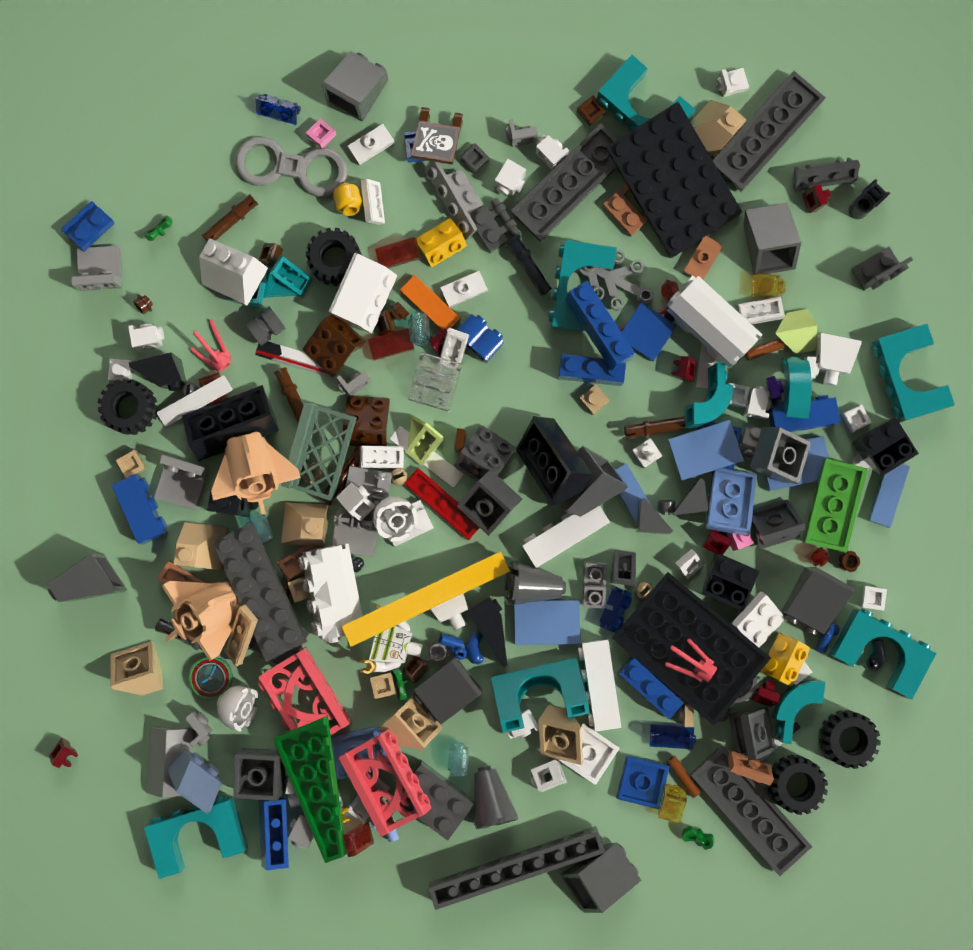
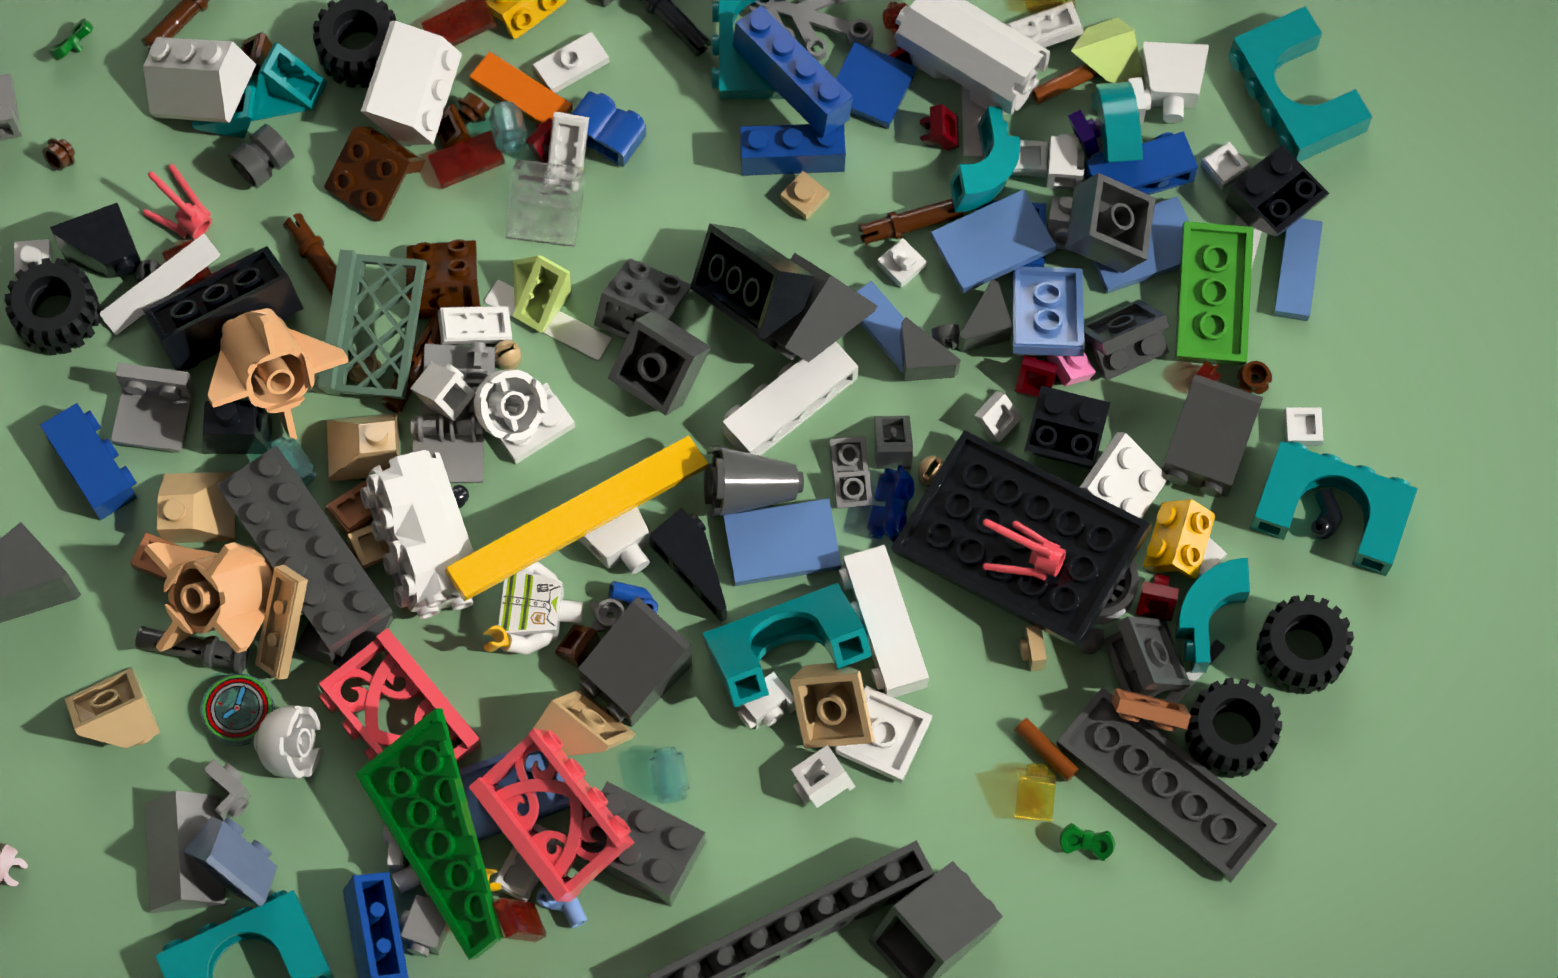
camera: 10 degrees left, 15 degrees down
(131, 464) = (66, 392): tan plate -> none
(146, 336) = (70, 198): white brick -> none
(258, 774) = (338, 841): dark grey brick -> none
(289, 357) = (306, 202): sticker -> none
(357, 382) = (417, 225): light grey bracket -> none
(383, 685) = (526, 677): tan plate -> none
(400, 684) = (548, 659): green piece -> none
(441, 502) = (584, 385): red tile -> none
(460, 440) = (598, 280): reddish brown tile -> none
(471, 647) = (667, 602): blue arm -> none
(491, 800) = (735, 831): dark grey cone -> none
(642, 782) = (981, 769): blue tile -> none
(650, 687) = (966, 613): blue brick -> none
(672, 736) = (1016, 689): clear blue hinge -> none
(824, 639) = (1238, 494): blue arm -> none

